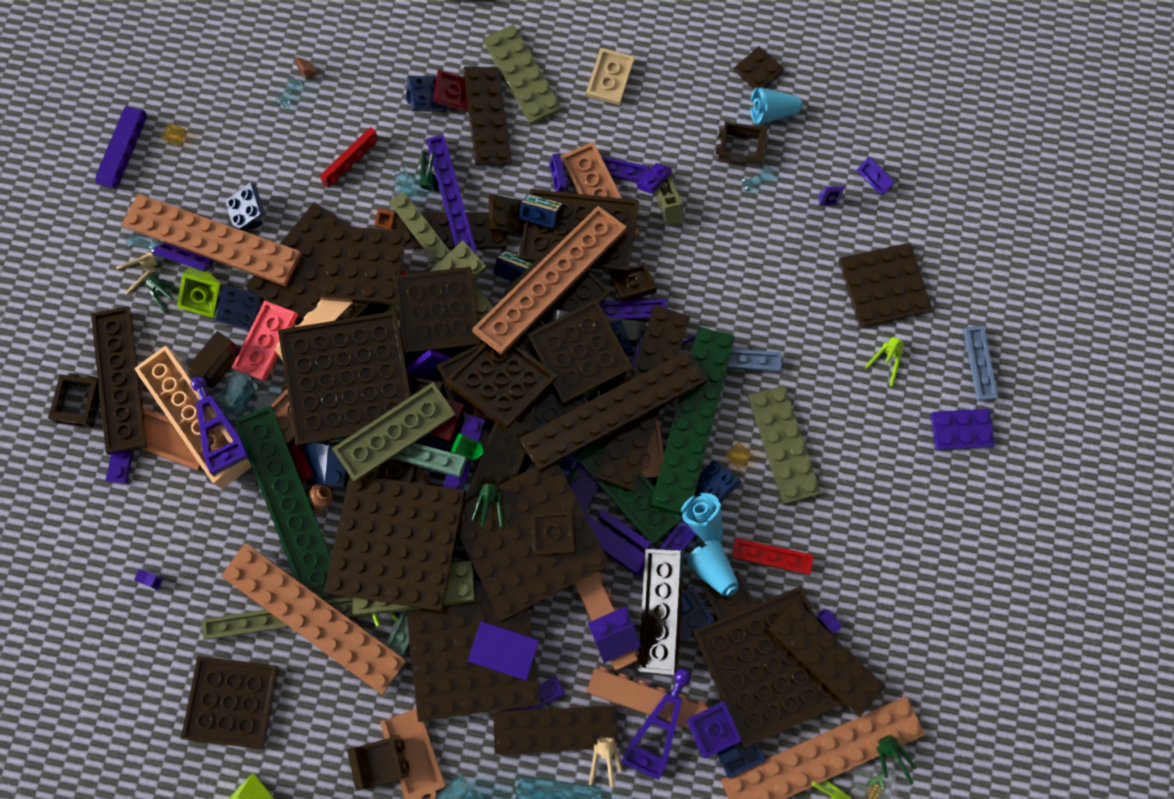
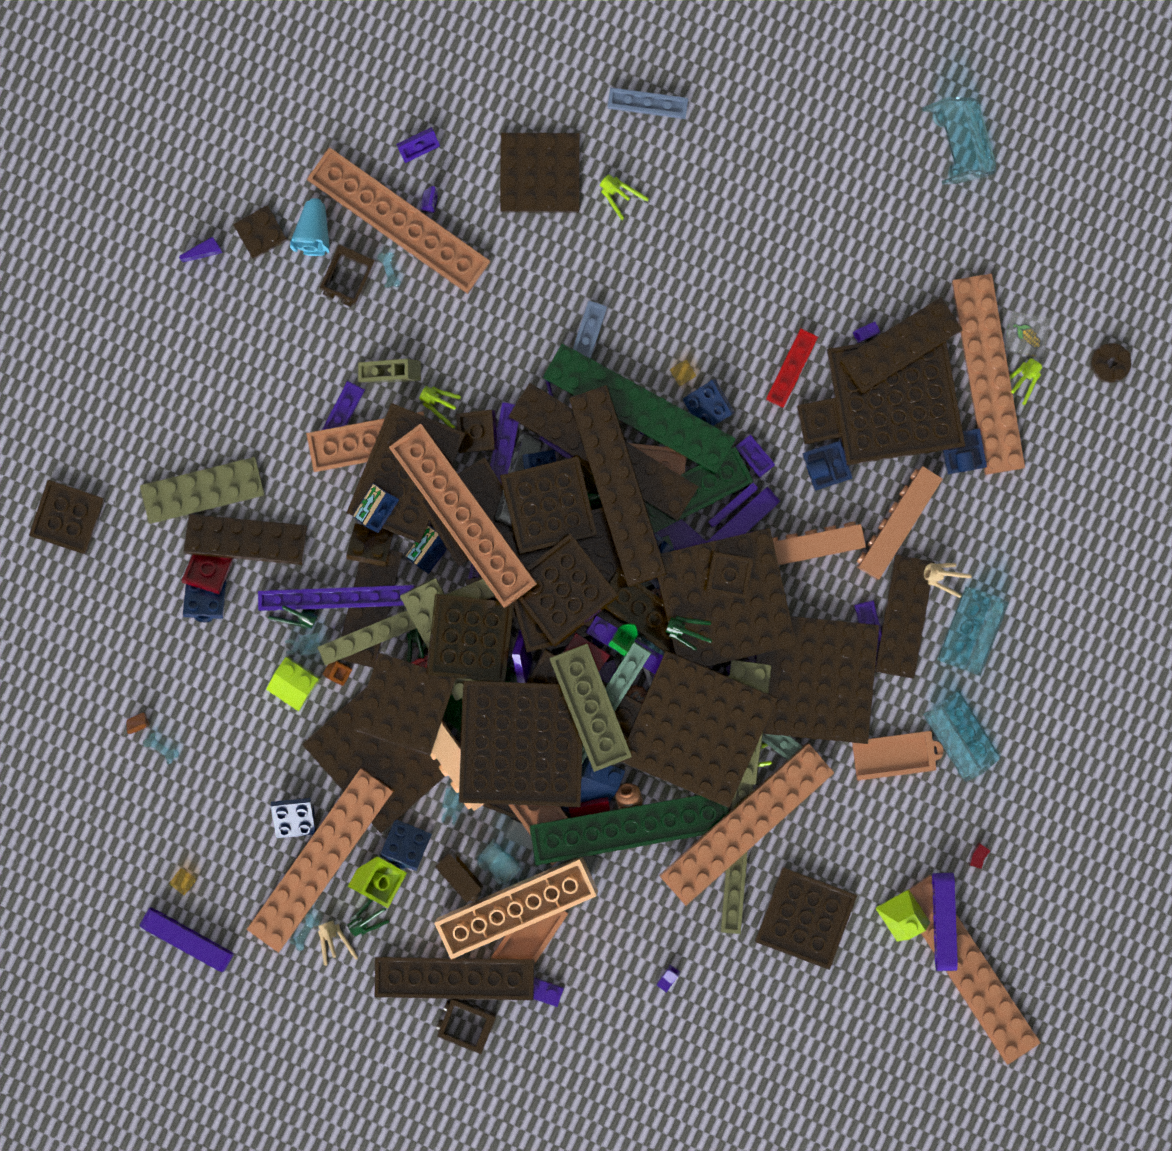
camera: 75 degrees left, 15 degrees up
(183, 256) = (332, 892): dark purple tile -> none
(228, 454) = (574, 876): dark purple plate -> none
(258, 350) = (448, 822): coral tile -> none
(349, 157) = (265, 703): red plate -> none
(369, 182) = (293, 683): none -> lime slope
(378, 762) = (895, 787): dark brown panel -> none
(503, 650) = (823, 648): dark purple tile -> none
(557, 172) = (329, 479): dark purple plate -> none
(610, 76) = (230, 395): tan plate -> none
(614, 634) = (833, 540): dark purple slope -> none
(643, 759) = (951, 540): dark purple plate -> none
(653, 238) = (430, 396): none -> lime plant
(654, 178) = (364, 379): dark purple plate -> none
(661, 611) = (821, 489): plate -> none
(704, 516) = (742, 425): medium azure cone -> none
(713, 567) = (793, 428): medium azure cone -> none
(713, 730) = (943, 469): dark purple plate -> none
(731, 29) = (205, 249): none -> dark purple slope
(784, 445) = (682, 325): olive plate -> none
(803, 177) = (398, 220): none -> nougat plate
(891, 746) = (995, 310): dark green plant -> none
(962, 429) = (710, 143): dark purple plate -> none
(1054, 674) = (966, 138): none -> clear light blue windscreen

